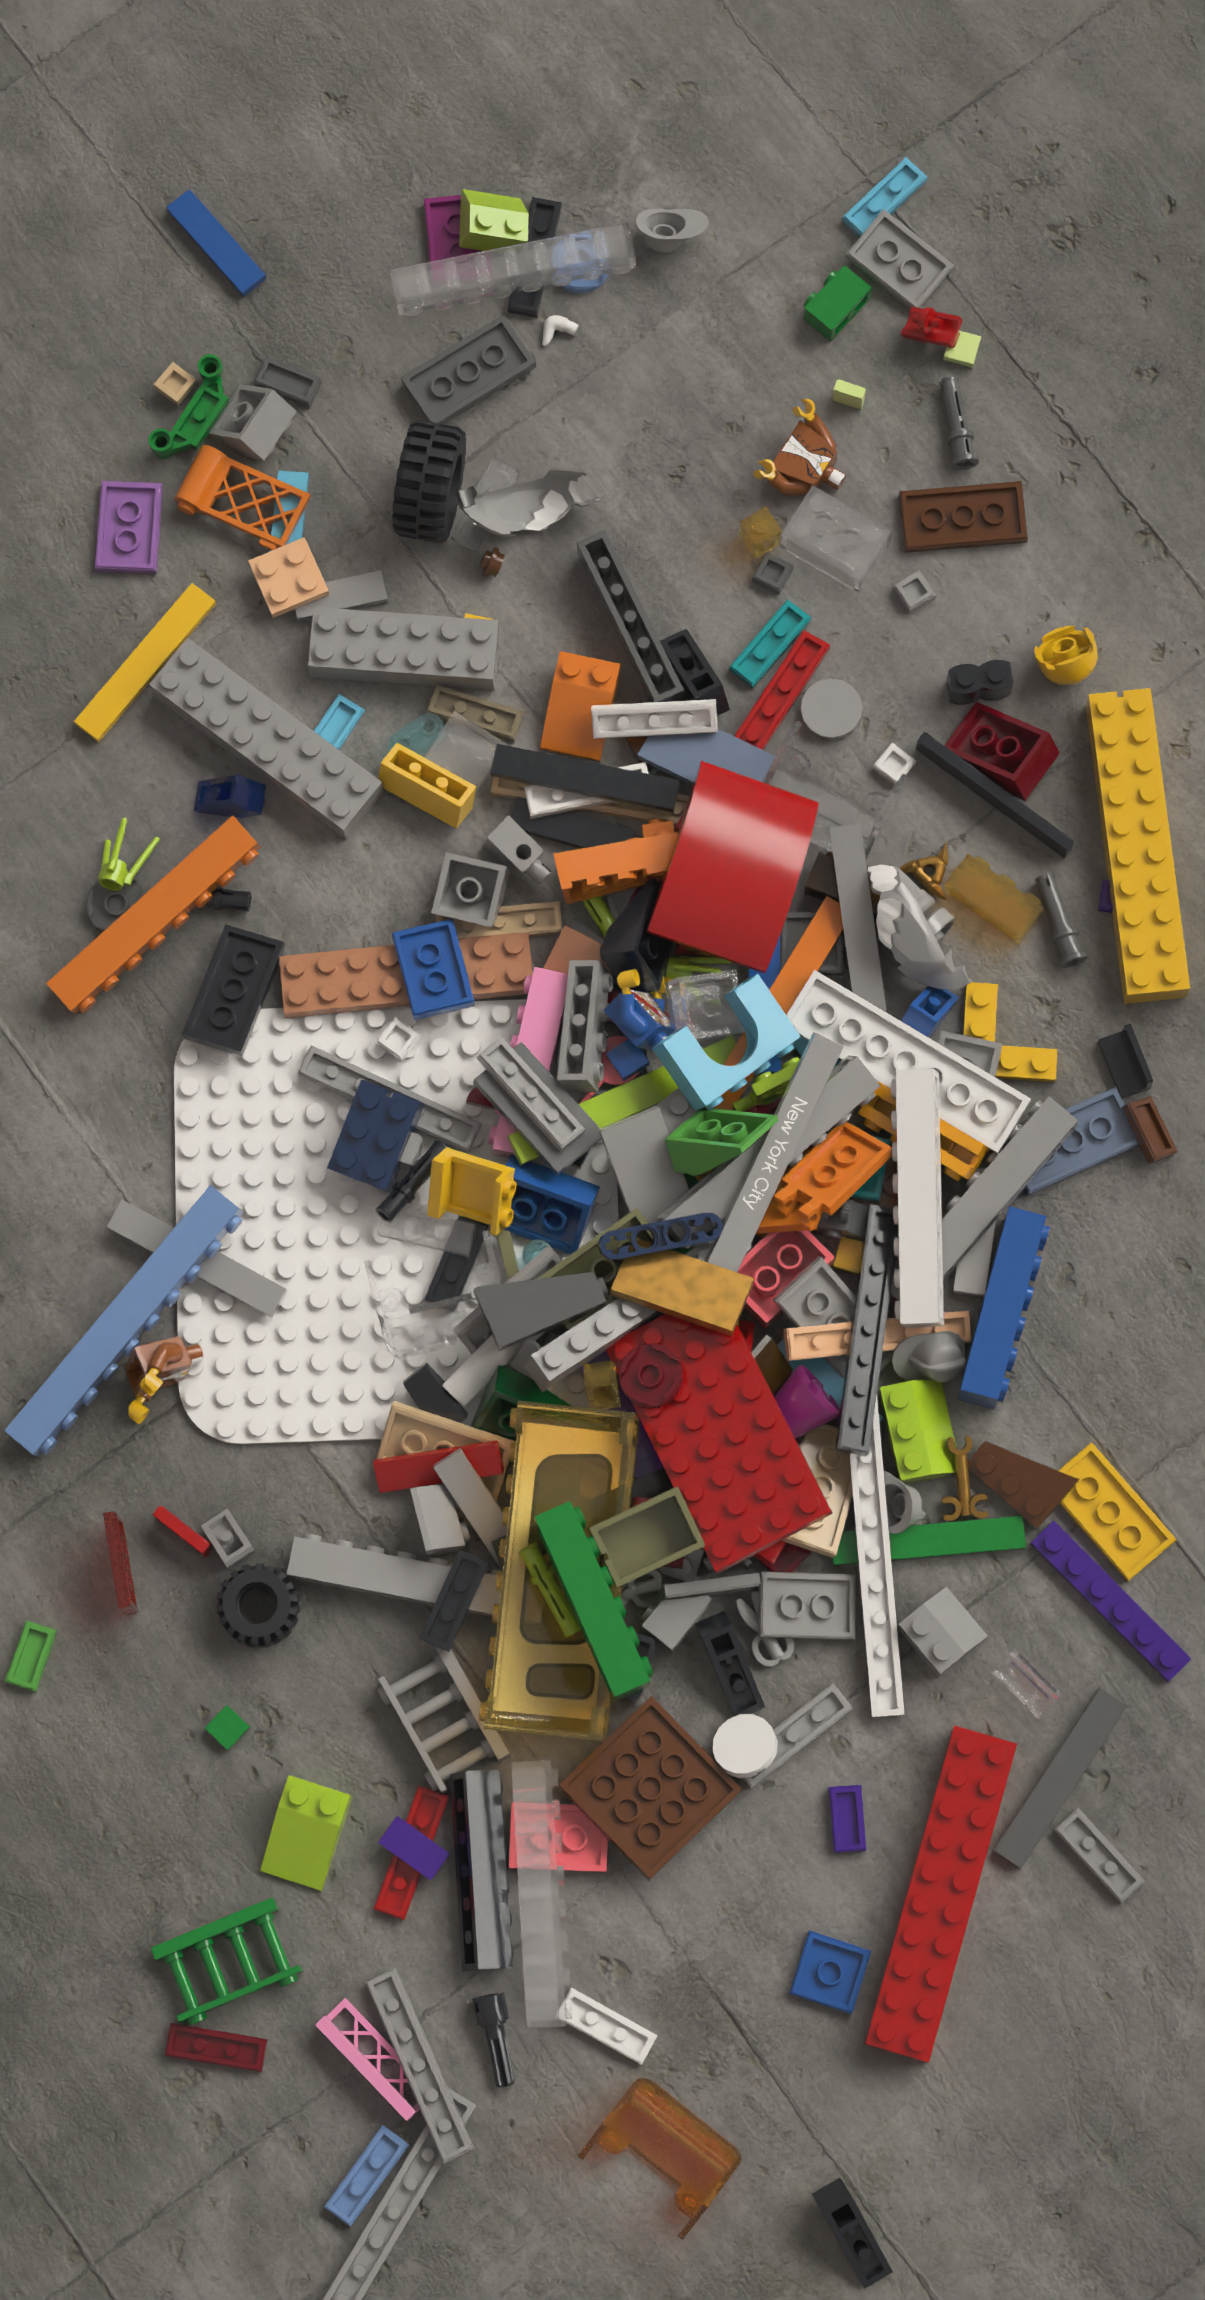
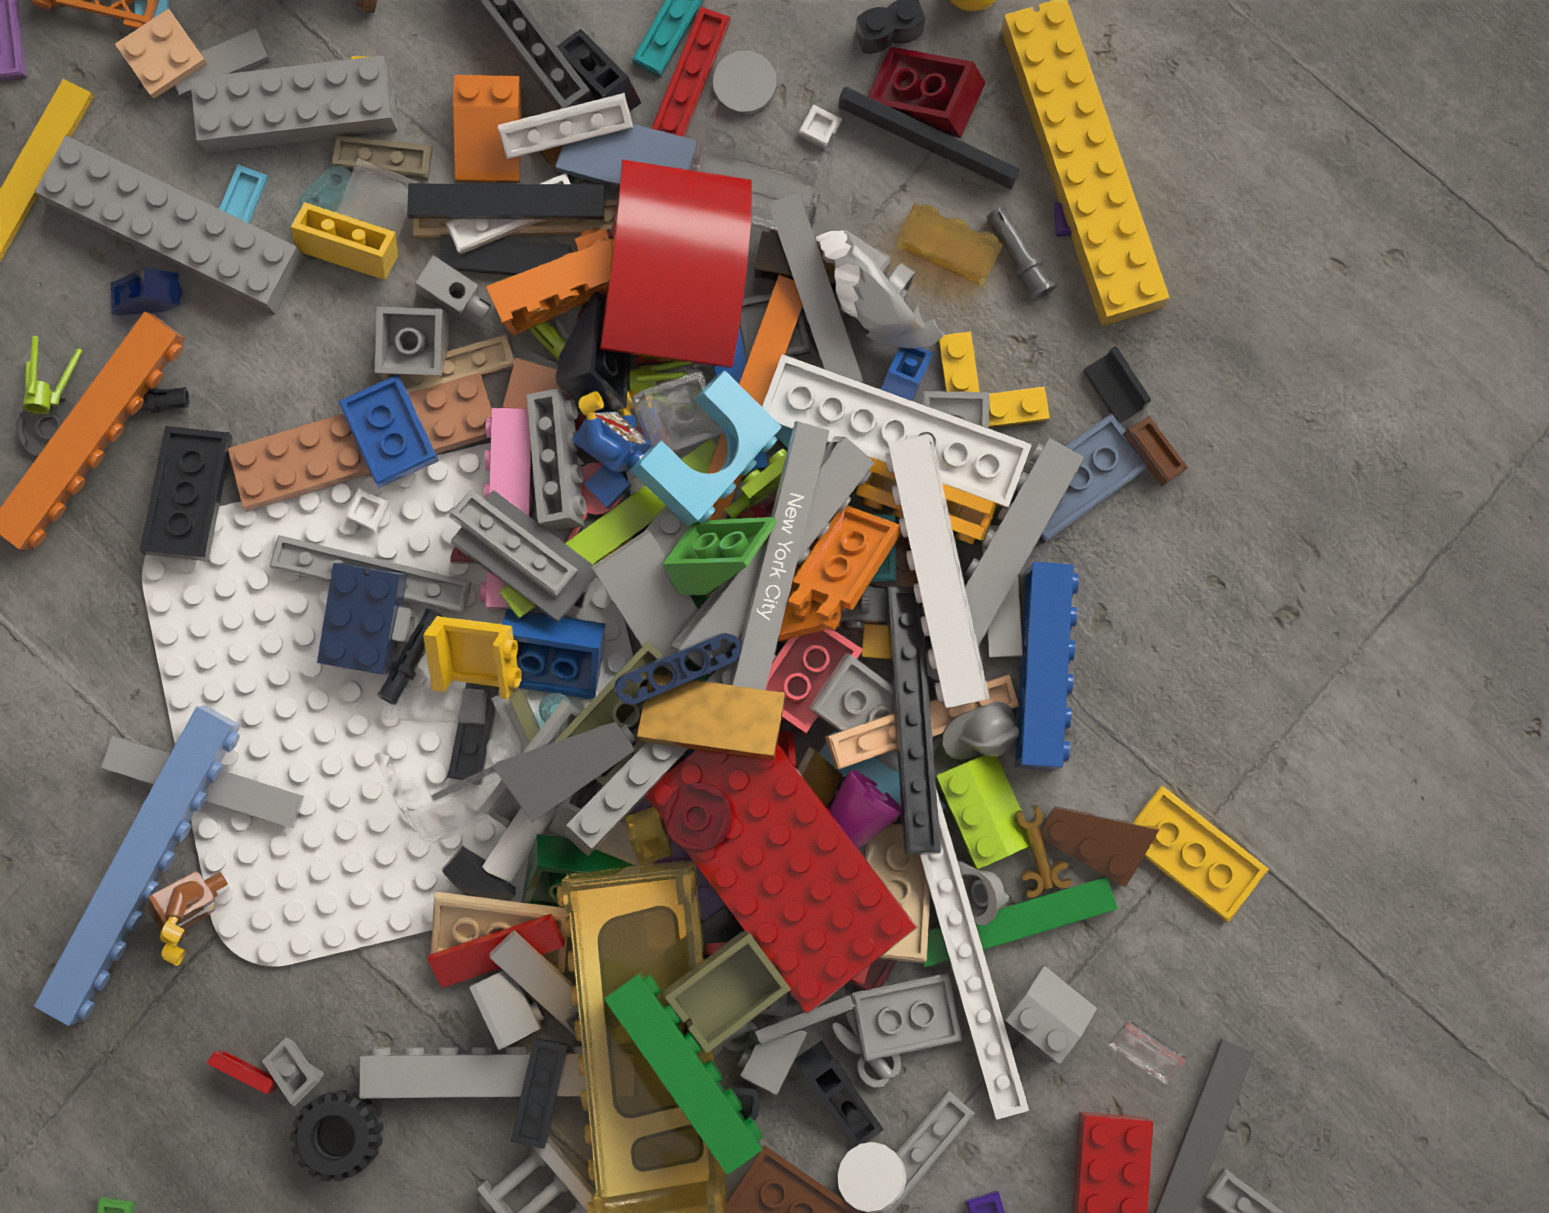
camera: 15 degrees left, 5 degrees up
(120, 1563) = (182, 1122): clear red tile -> none
(550, 1589) = (626, 1050): lime pin -> none
(930, 882) = (884, 219): pearl gold piece -> none
(1110, 1601) = (1214, 946): dark purple plate -> none

